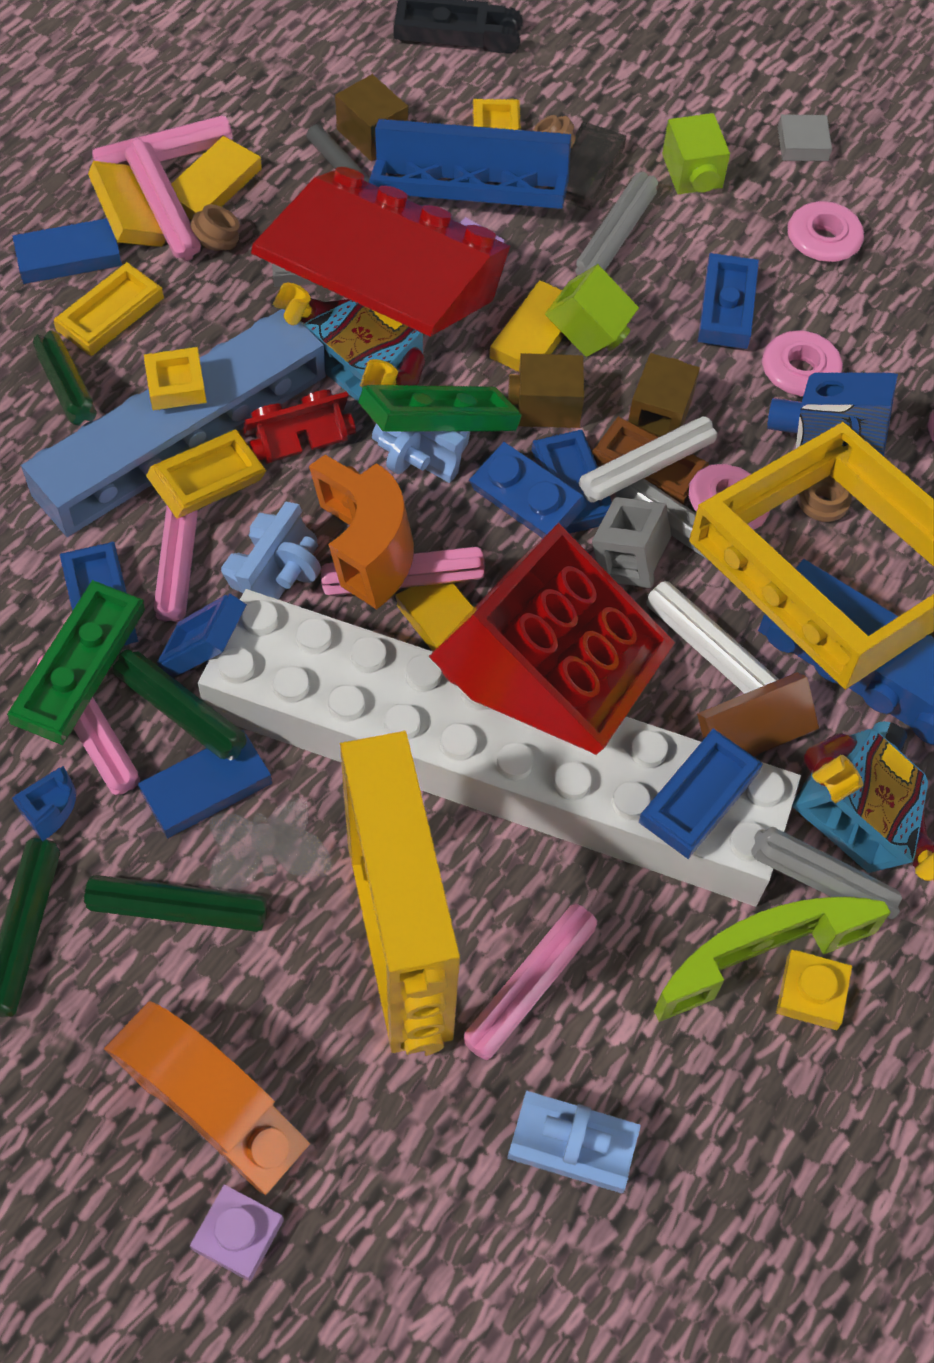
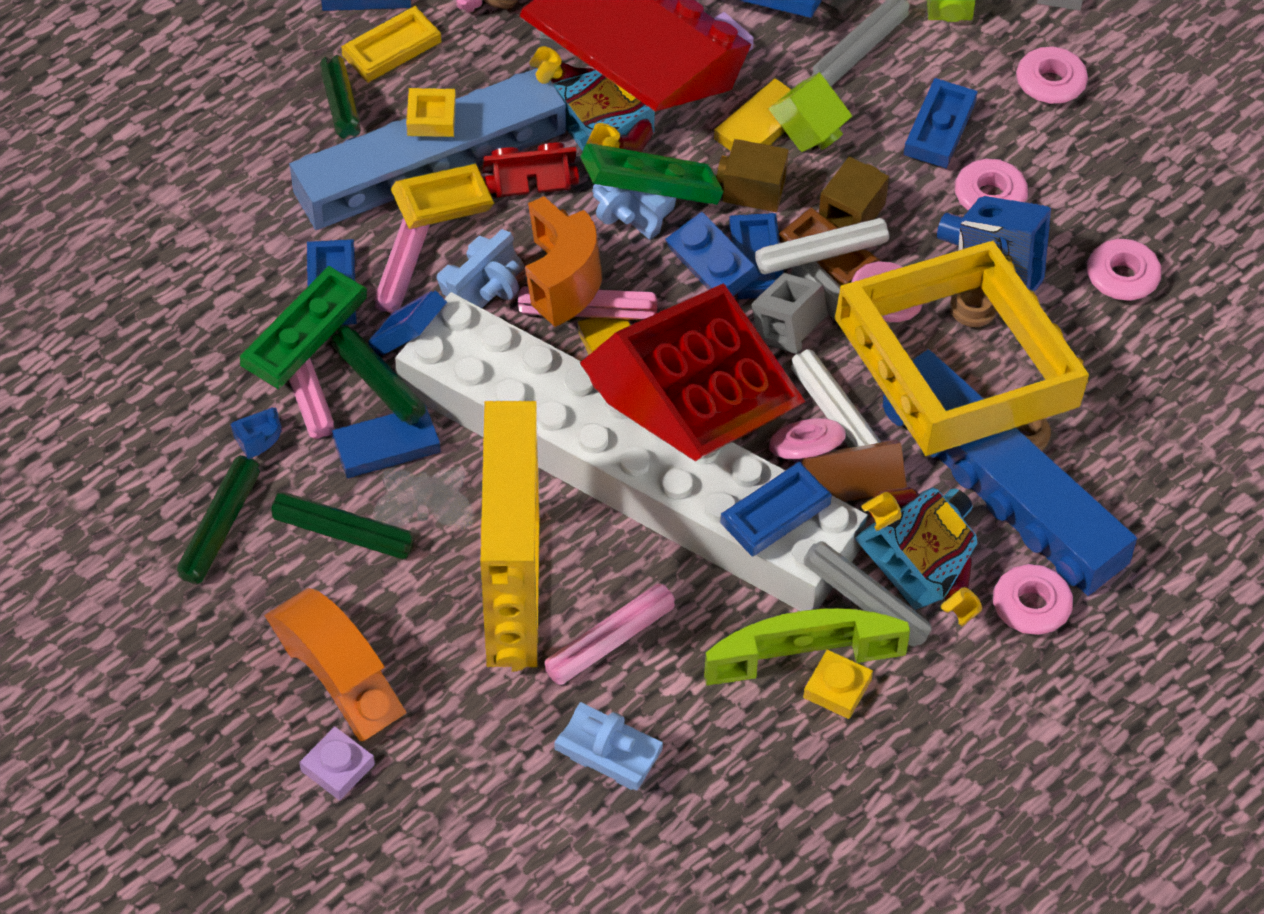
camera: 15 degrees right, 5 degrees down
(694, 689) = (807, 439): none -> bright pink piece

